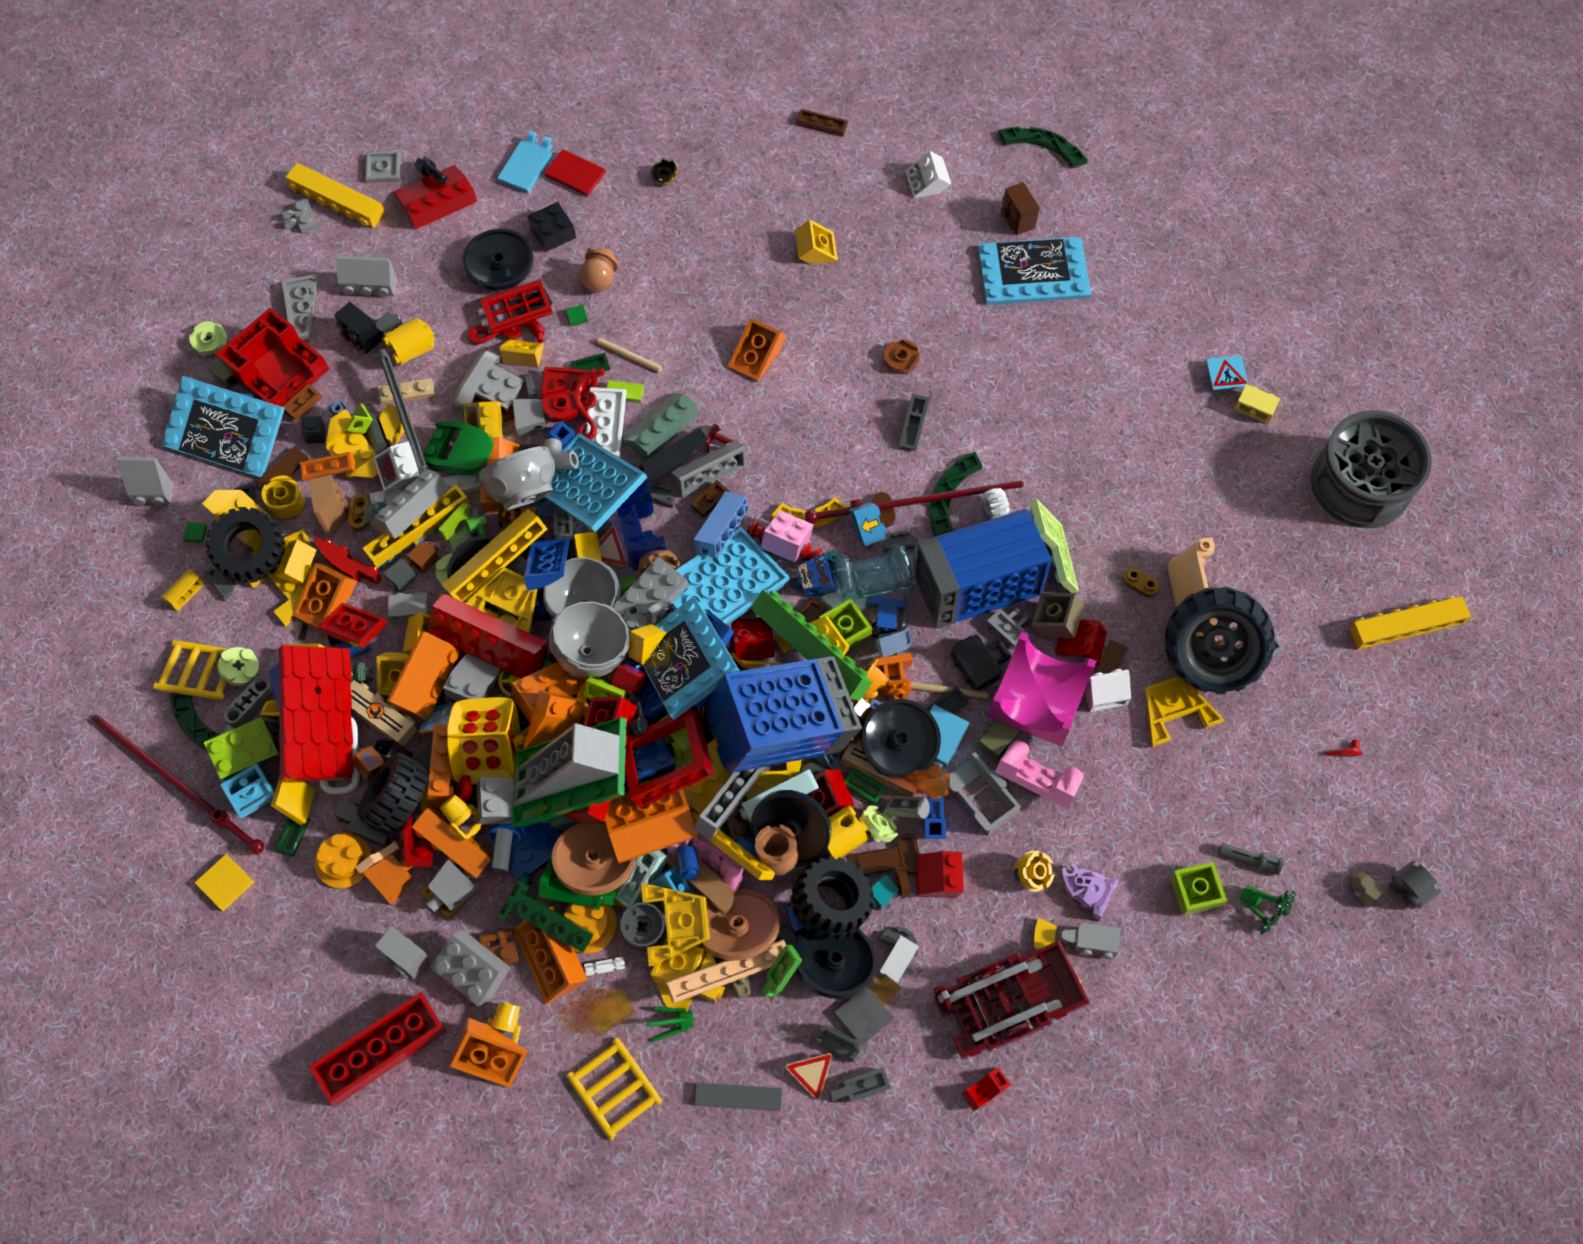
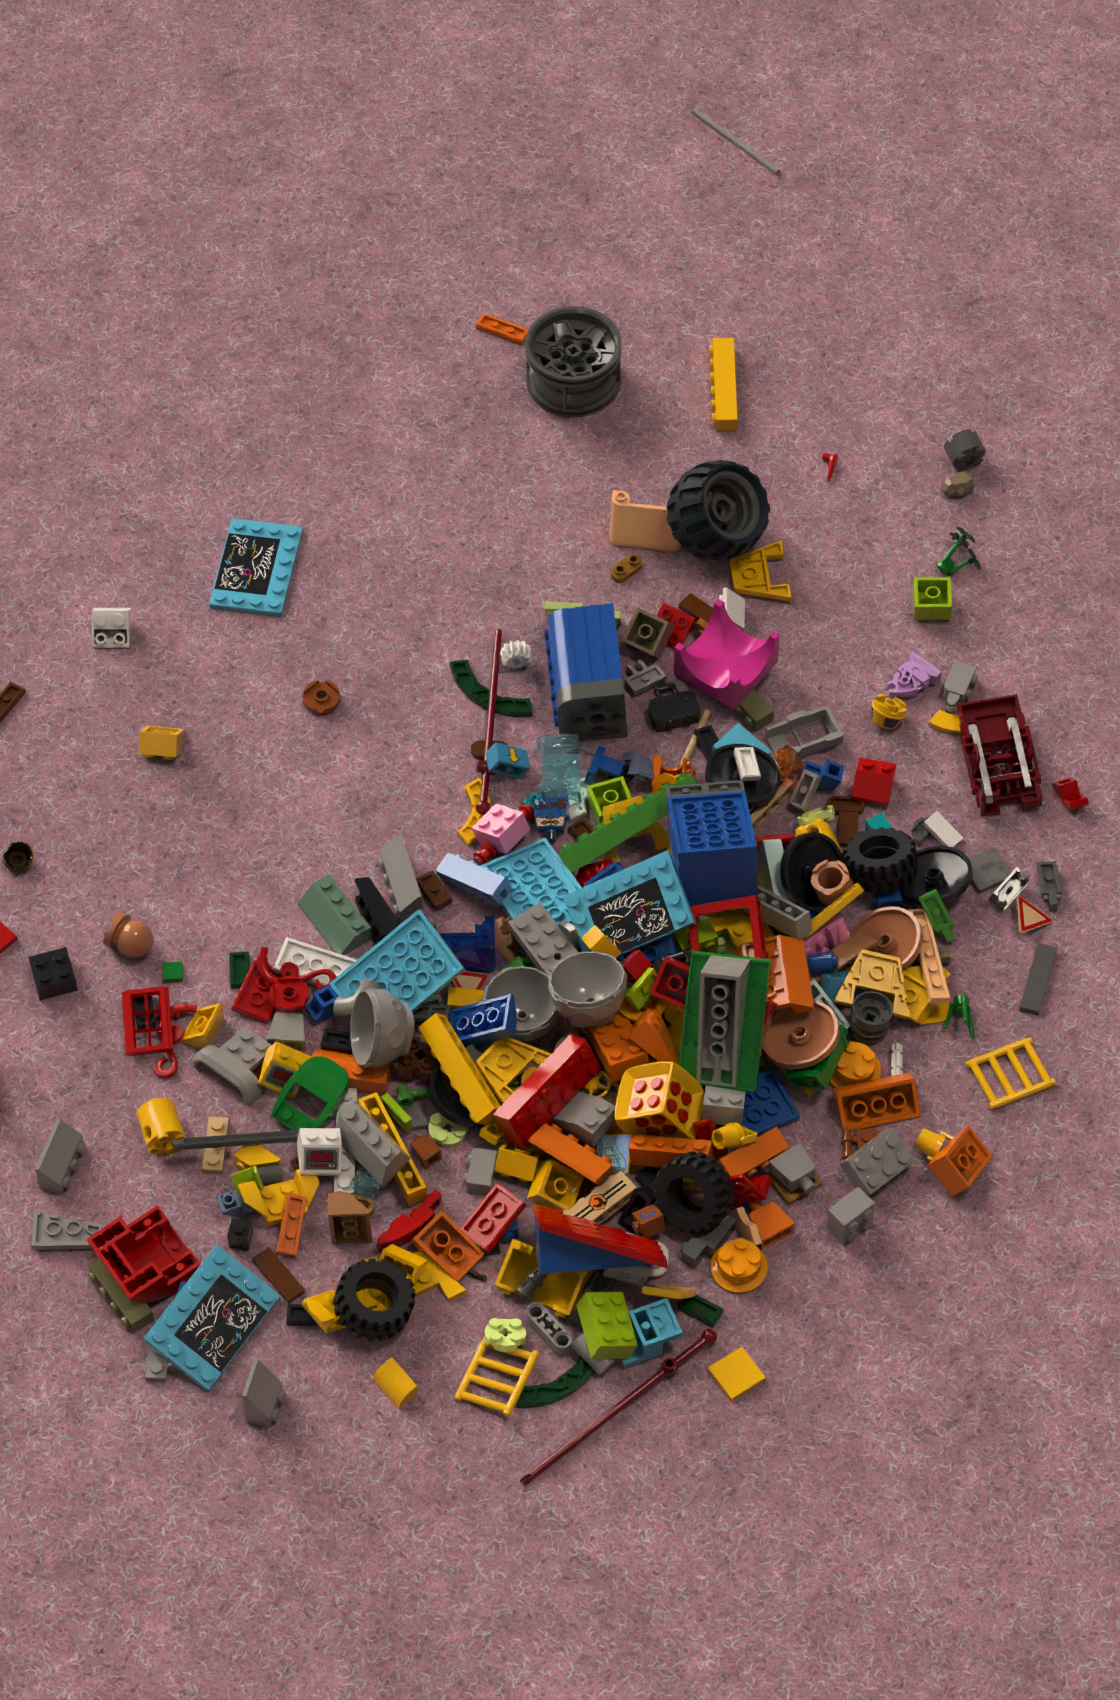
camera: 75 degrees left, 10 degrees down
(195, 532) = (328, 1367): green tile -> none
(211, 346) = (85, 1340): yellowish green plate -> none
(221, 582) = (397, 1346): dark grey tile -> none
(283, 497) = (317, 1270): yellow brick -> none
(302, 402) = (196, 1241): dark orange plate -> none
(357, 328) = (127, 1172): black brick -> none
(377, 1049) = (937, 1250): red brick -> none
(388, 323) = (130, 1147): dark grey brick -> none
(400, 576) = (442, 1175): dark grey brick -> none
(498, 259) = (80, 1028): black dish -> none
(501, 851) = (768, 1120): dark grey brick -> none
(530, 386) = (251, 1023): dark grey tile -> none
(543, 916) = (821, 1107): dark green bracket -> none
(610, 1011) = (941, 1060): clear yellow brick -> none
(633, 390) = (277, 943): lime tile -> none
(634, 357) = (238, 933): tan bar -> none
(713, 435) = (363, 868): dark red plant -> none
(756, 349) = (273, 816): orange slope -> none
(882, 789) = (788, 821): green tile -> none
(885, 989) = (967, 846): clear yellow slope -> none
(902, 538) = (528, 742): dark grey tile -> none
(902, 881) = (872, 808): reddish brown piece -> none
(912, 738) = (747, 764): none -> white tile
(914, 421) = (402, 701): dark grey slope -> none
(1020, 208) = (185, 555): reddish brown piece -> none
(1038, 778) = (814, 673): bright pink piece -> none
(1047, 139) = (99, 517): dark green tile -> none
(1227, 373) = (428, 444): medium azure piece -> none
(1257, 404) = (469, 430): light yellow brick -> none
(1263, 860) = (915, 551): dark grey pin -> none
(1399, 398) = (502, 328): none -> orange tile

